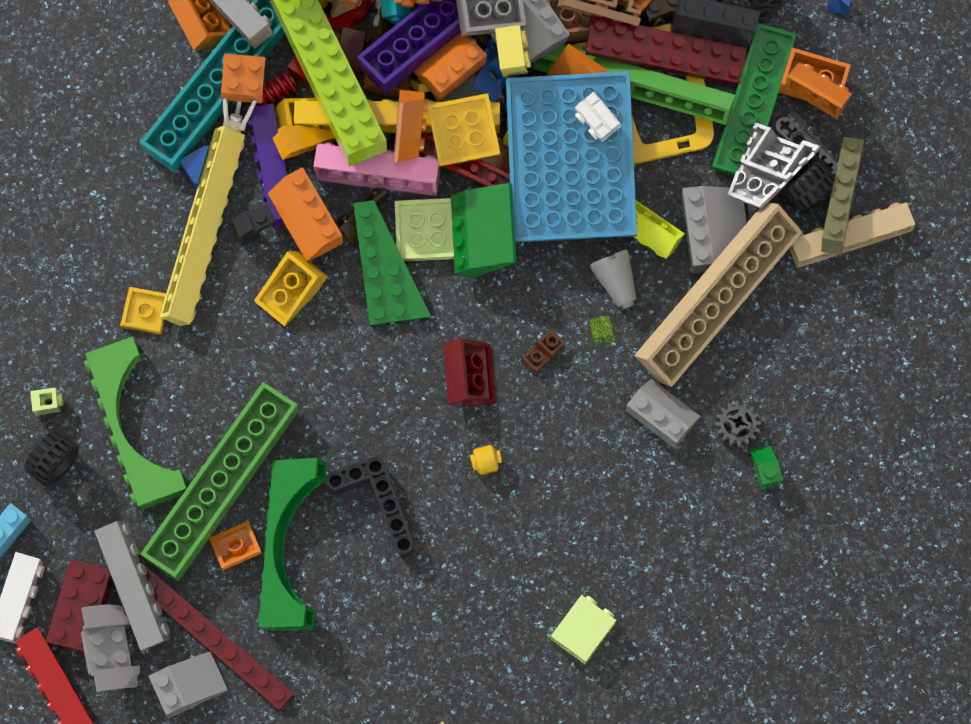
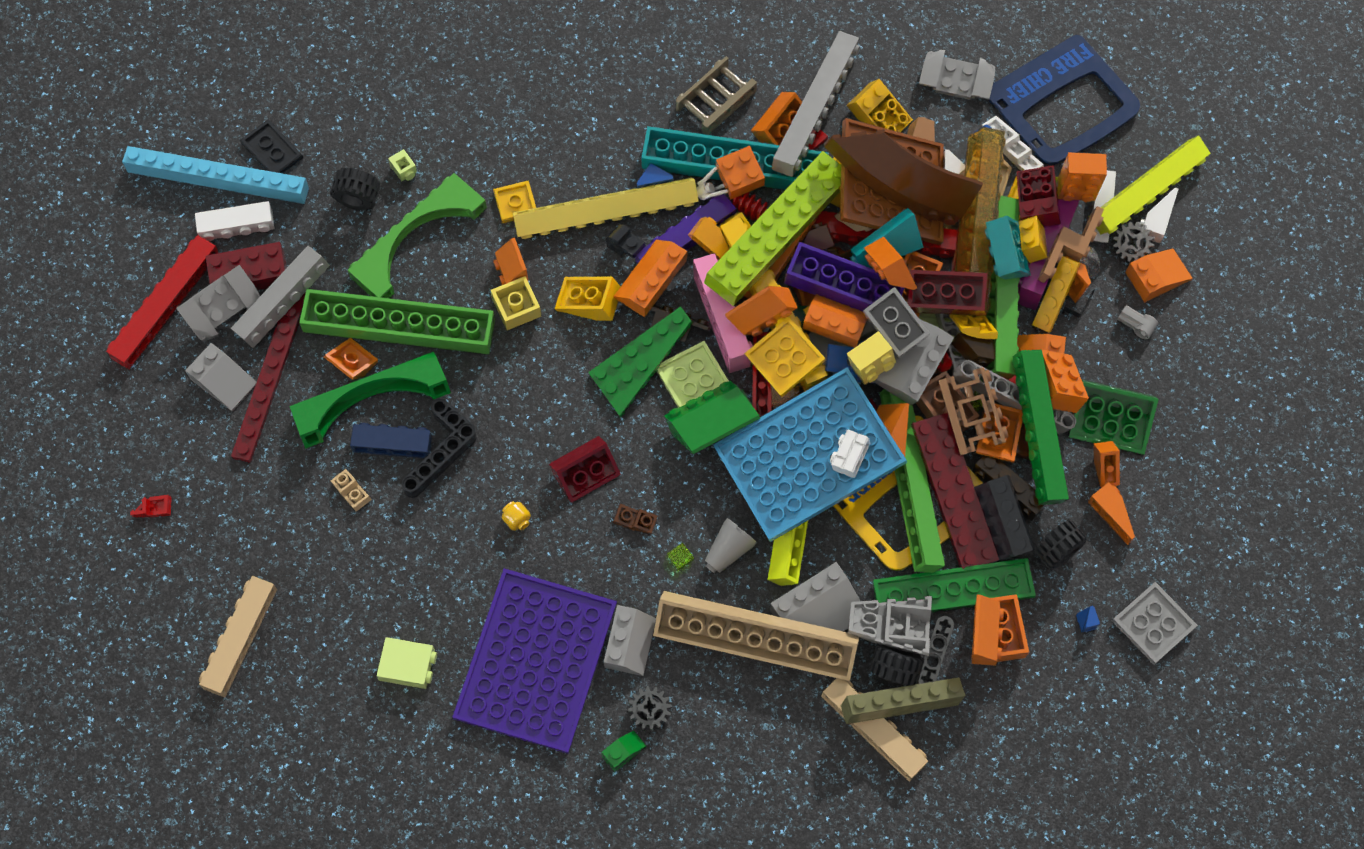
camera: 60 degrees right, 5 degrees down
(148, 50) = (721, 112): none -> dark tan fence
(219, 344) = (510, 262): none -> orange slope
(262, 358) = (516, 303): none -> light yellow brick
(345, 544) = (391, 440): none -> dark blue brick
(375, 607) = (350, 490): none -> tan slope
(638, 507) = (535, 660): none -> dark purple plate

